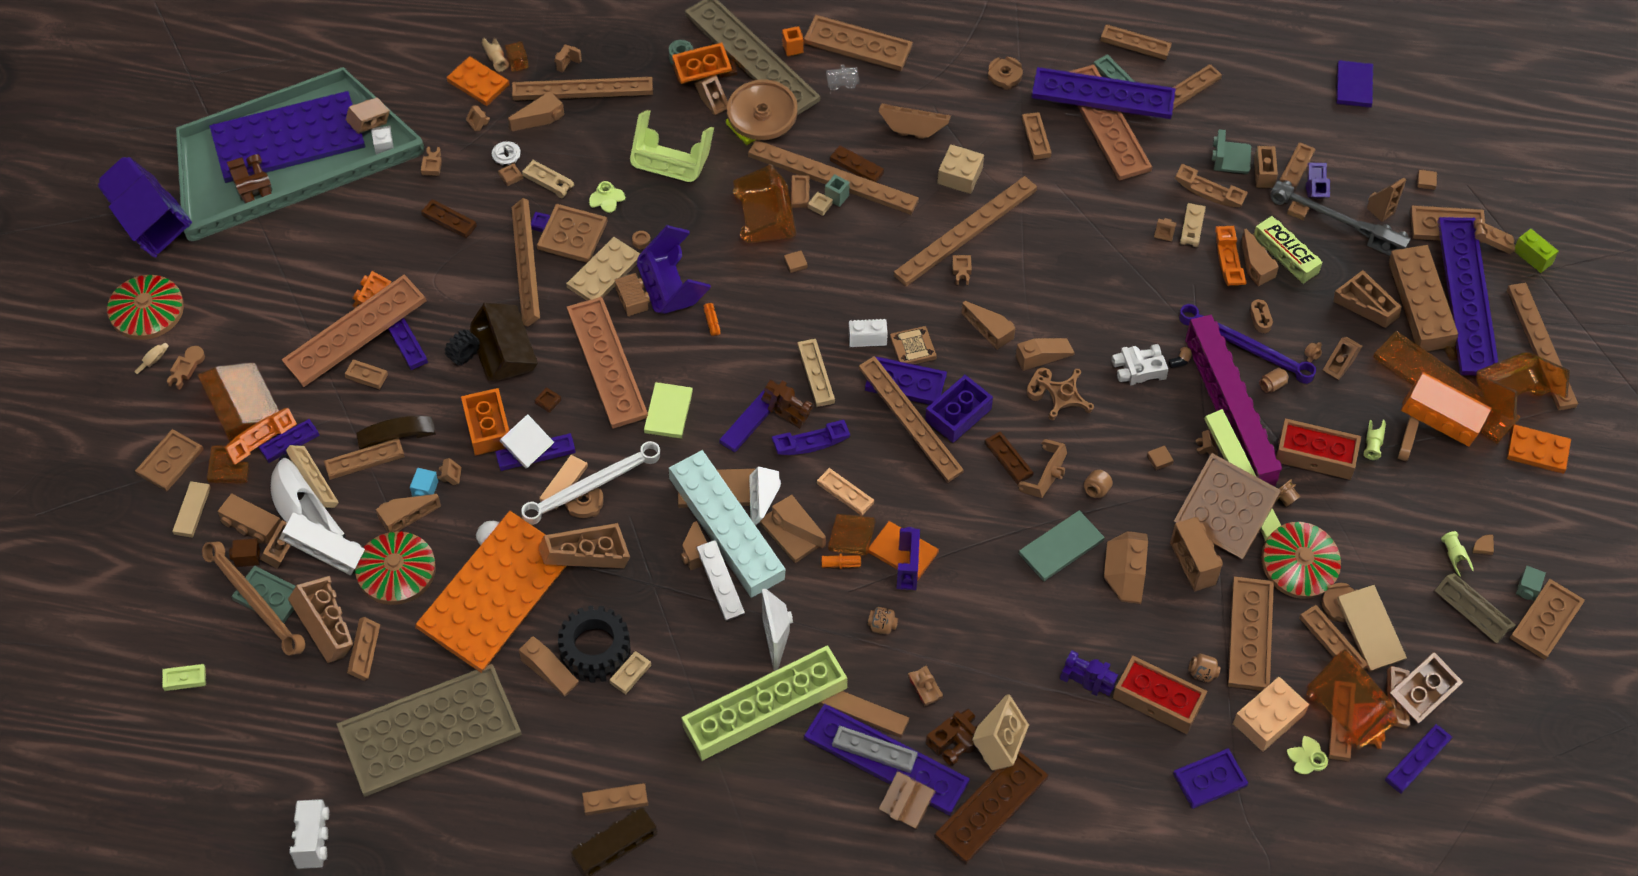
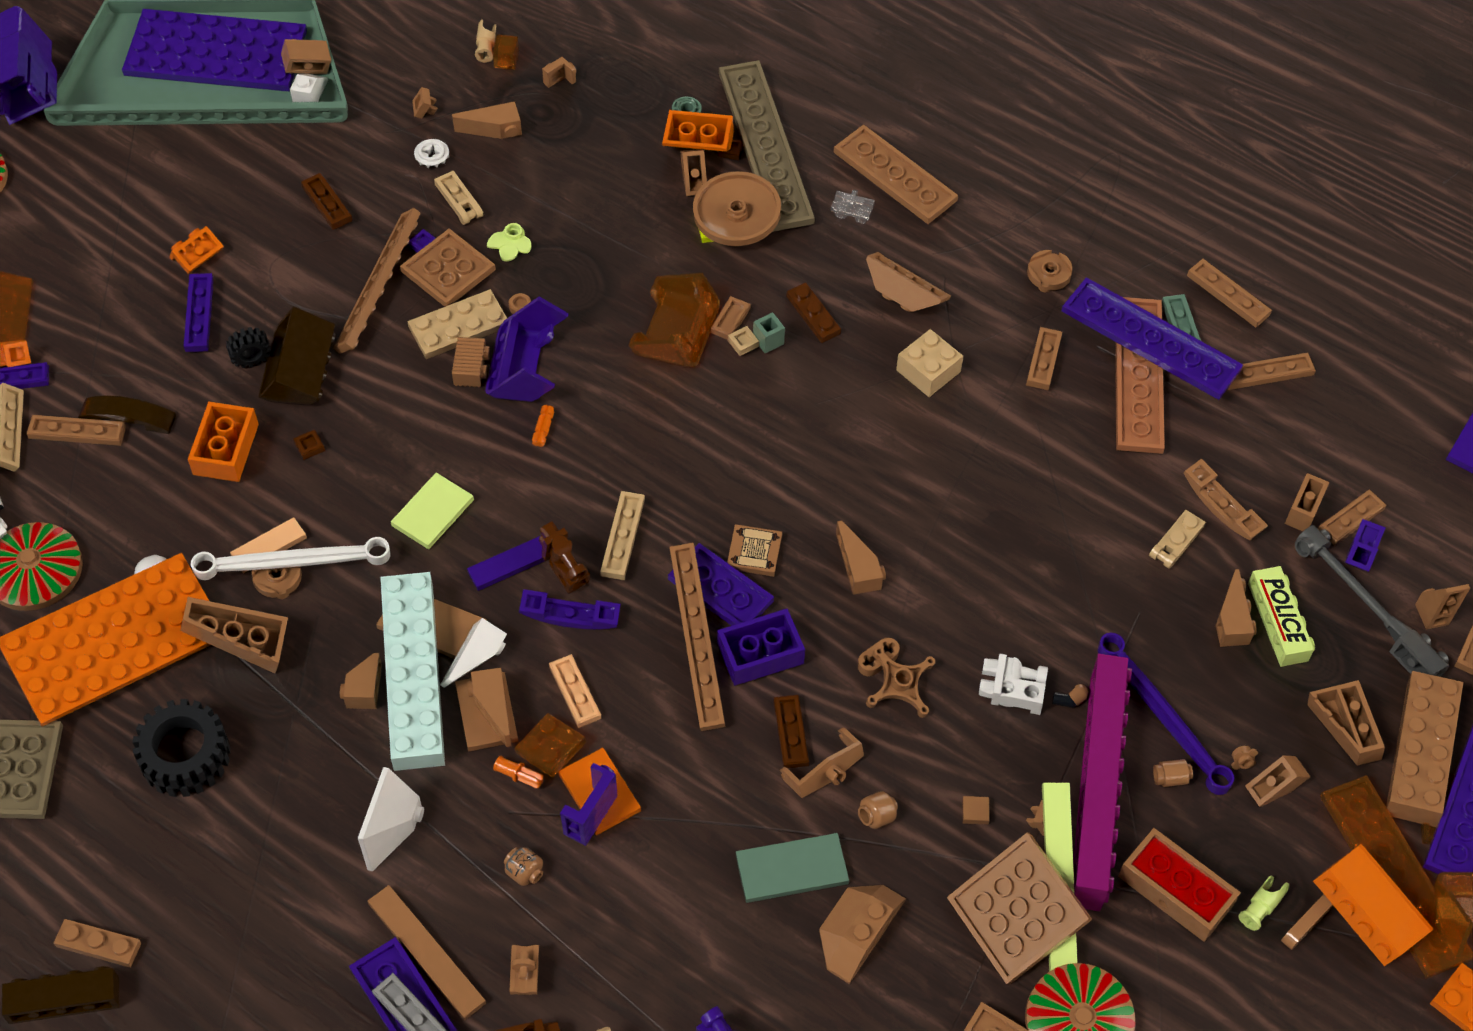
camera: 25 degrees right, 0 degrees up
(246, 184) = (138, 84): reddish brown hips -> none
(354, 330) = (149, 284): nougat plate -> none
(366, 374) = (134, 337): medium nougat plate -> none
(404, 511) = (75, 506): medium nougat slope -> none
(423, 482) = (116, 485): medium azure brick -> none
(432, 164) = (346, 135): medium nougat plate -> none
(450, 472) = (153, 482): medium nougat tile -> none
(478, 81) = (450, 64): orange plate -> none
(510, 174) = (423, 178): medium nougat tile -> none
(526, 441) = (248, 481): white tile -> none
(547, 666) = (118, 751): medium nougat slope -> none
(562, 446) = (257, 498): dark purple plate -> none
(583, 88) = (558, 113): medium nougat plate -> none
(607, 362) = (396, 429): nougat plate -> none
(630, 672) = (203, 799): tan plate -> none
(652, 157) = (588, 217): yellowish green windscreen -> none
(720, 580) = (365, 735): white plate -> none
(764, 702) = (324, 905): yellowish green brick -> none
(792, 41) = (818, 144): orange brick -> none
(795, 261) = (677, 397): medium nougat tile -> none
(823, 173) = (764, 303): medium nougat plate -> none
(867, 333) = (708, 512): white brick -> none
(962, 267) = (865, 479): medium nougat plate -> none
(965, 231) = (895, 438): medium nougat plate -> none
(1042, 351) = (904, 619): medium nougat slope -> none
(1165, 229) = (1138, 530): medium nougat tile -> none
(1196, 553) = (947, 951): medium nougat brick -> none
(1228, 256) = (1202, 595): orange slope -> none
(1230, 155) = (1272, 472): sand green bracket -> none
(1257, 316) = (1207, 686): medium nougat beam -> none
(1288, 493) = (1108, 924): medium nougat piece -> none
(1298, 210) = (1322, 573): medium nougat tile -> none

